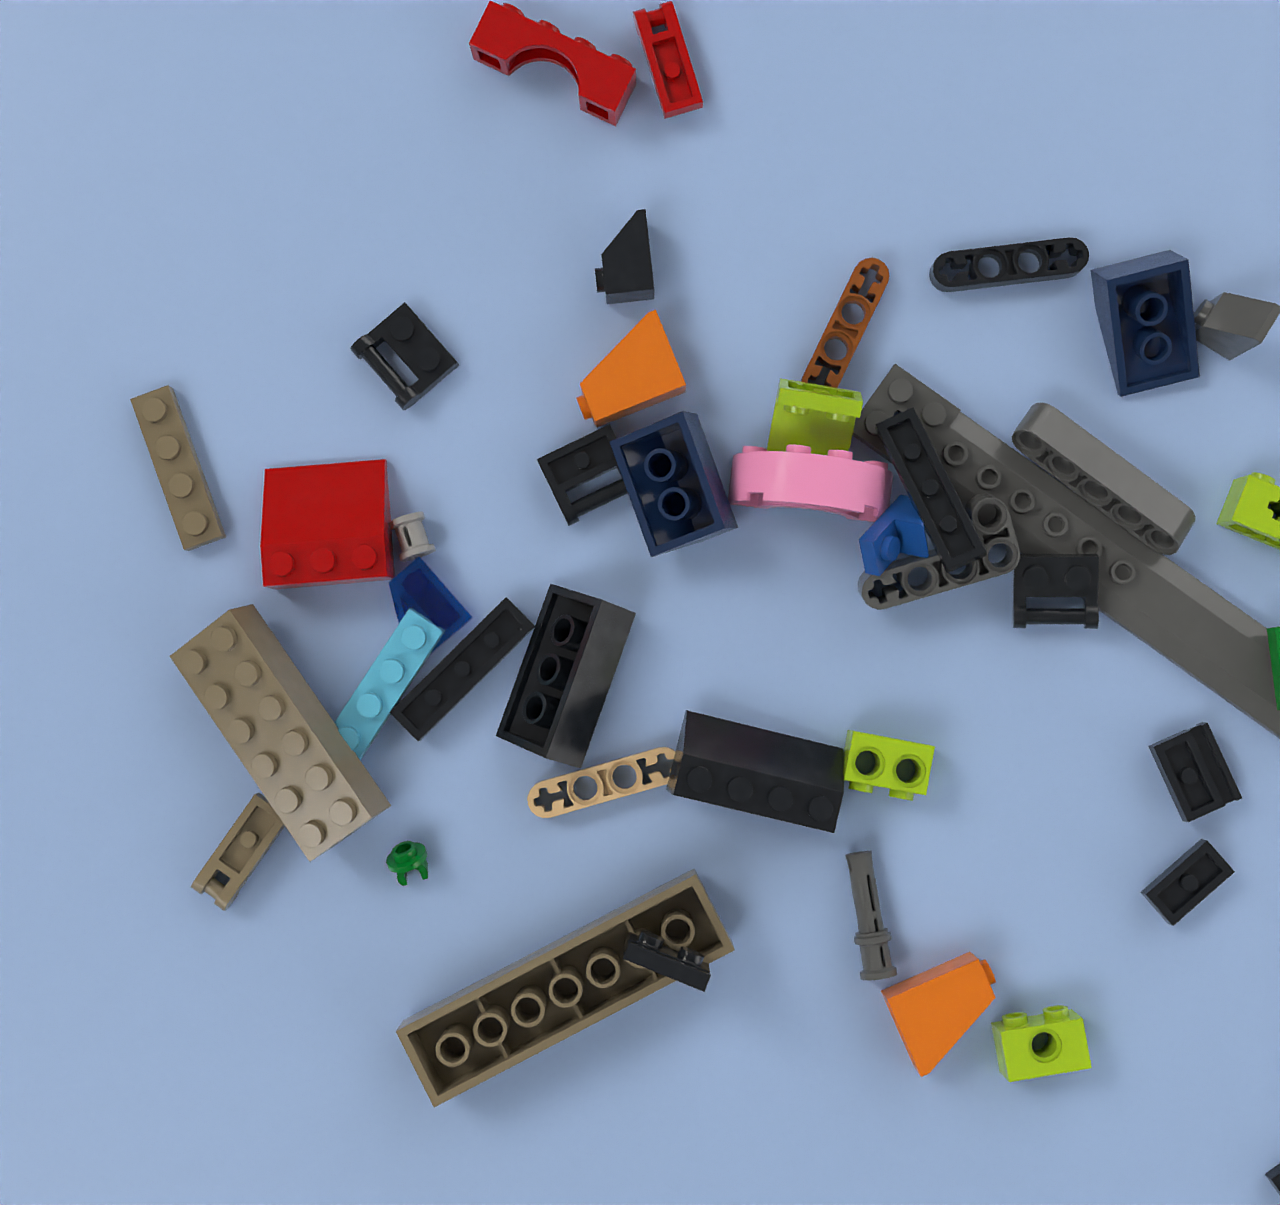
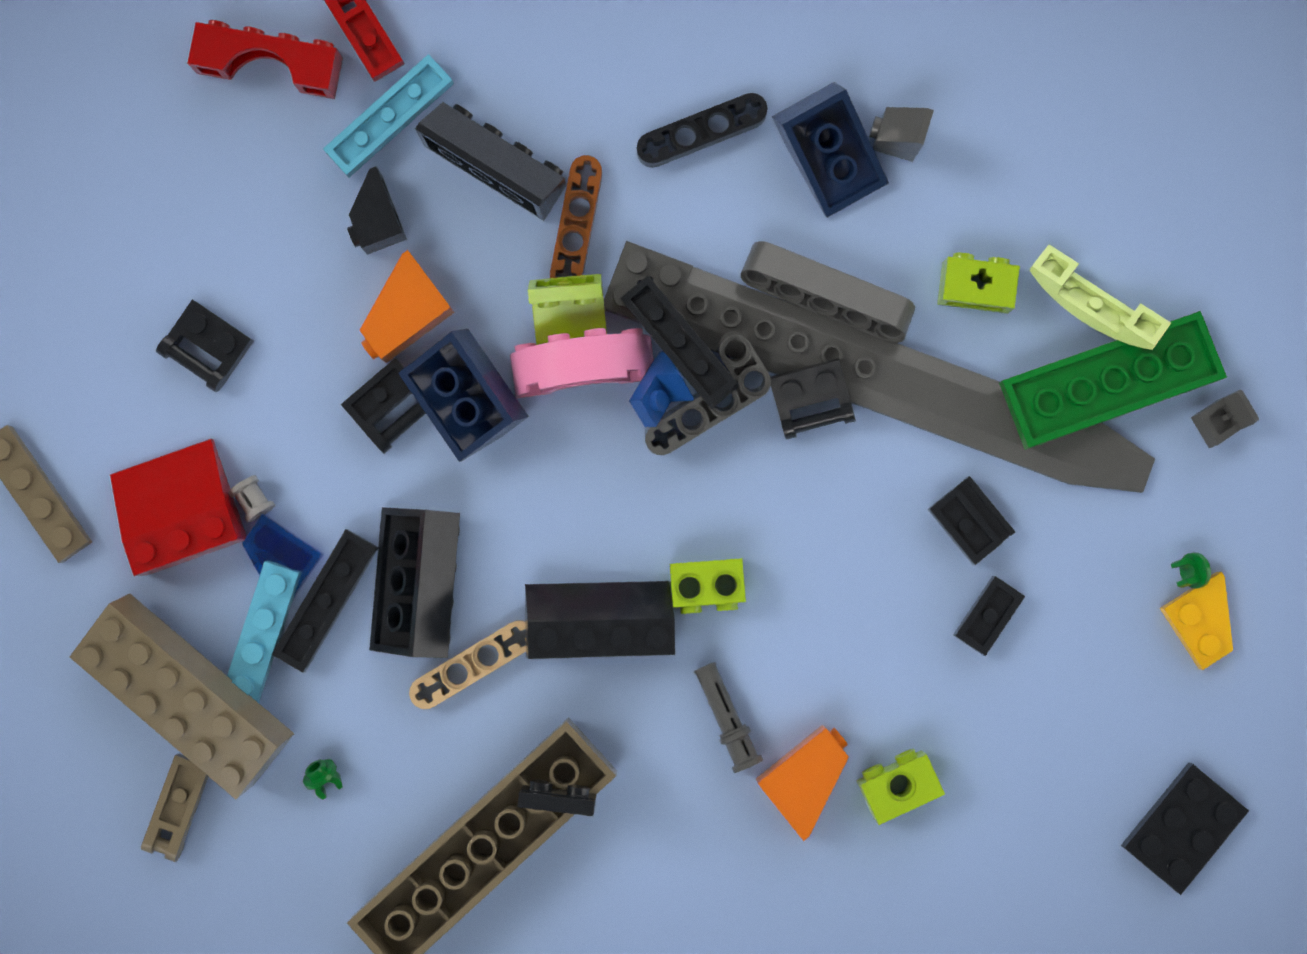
camera: 20 degrees left, 0 degrees up
(671, 159) = (388, 115): none -> medium azure plate
(772, 236) = (491, 159): none -> black slope

